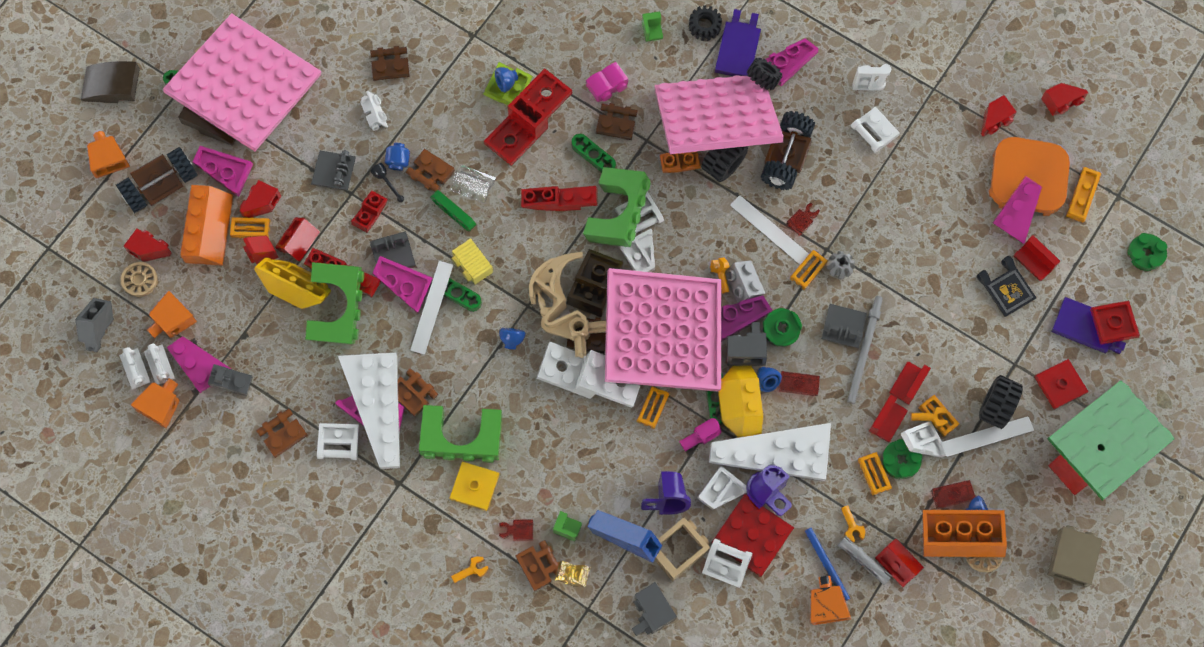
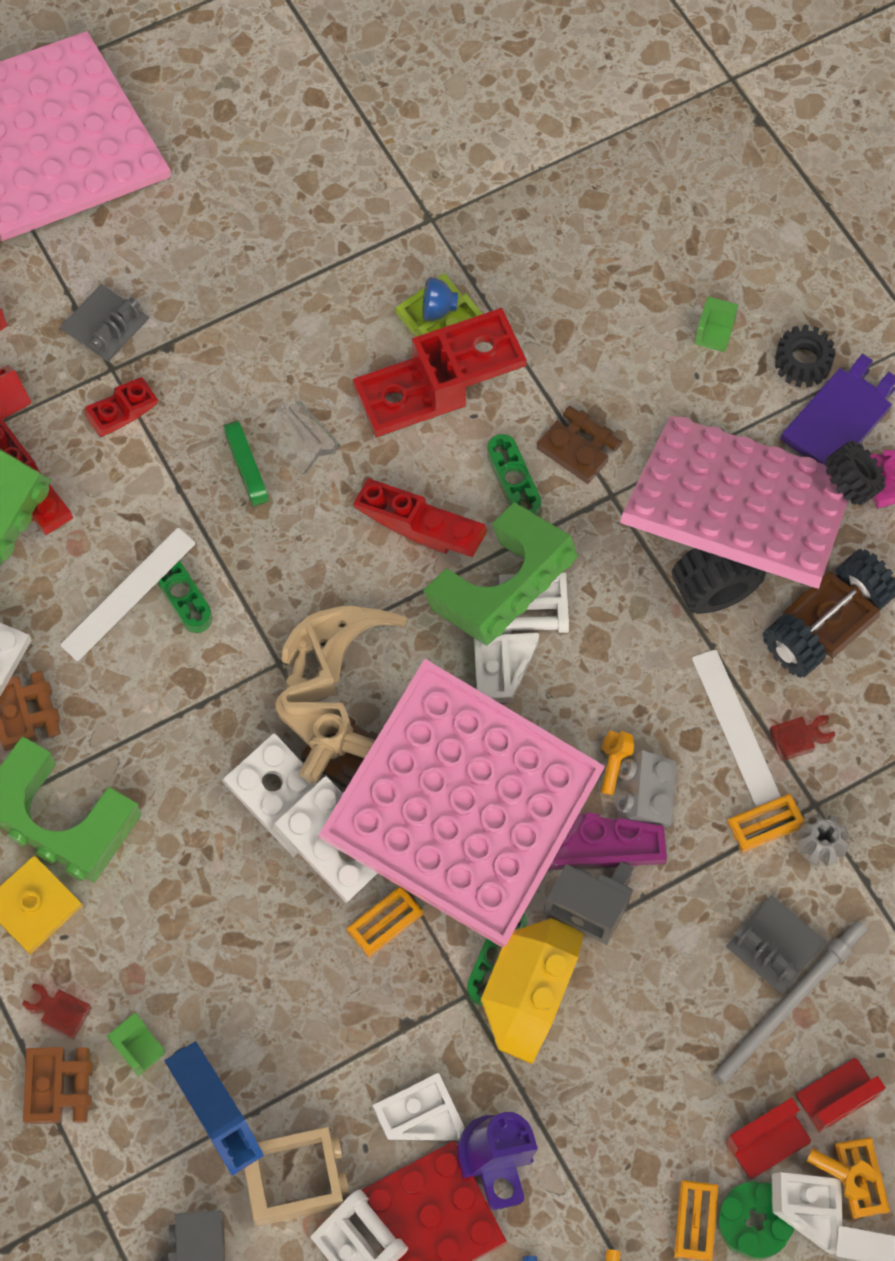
camera: 30 degrees right, 5 degrees down
(372, 104) = (217, 252): white hinge -> none
(379, 171) = (170, 355): black hinge -> none
(389, 68) = (276, 212): reddish brown plate -> none
(394, 248) = (118, 484): dark grey hinge -> none
(397, 156) = (208, 344): blue head -> none
(403, 281) = (108, 535): dark pink wing -> none
(433, 166) = (255, 382): dark orange plate -> none
(472, 262) = (229, 553): light yellow brick -> none
(511, 337) = (222, 698): blue brick -> none
(572, 574) = (98, 1126): clear yellow panel -> none
(590, 283) = (383, 678): dark brown slope -> none
(607, 82) = (596, 377): dark pink brick -> none
(671, 495) = (330, 1079): dark purple container -> none
(679, 162) = (644, 552): orange slope -> none
(702, 434) = (438, 1005): dark pink arm -> none
(768, 378) = (597, 969): blue brick -> none
(771, 325) = (681, 880): green plate -> none
(796, 451) = (571, 1111): white wing -> none
(799, 383) = (648, 1002): clear red plate -> none

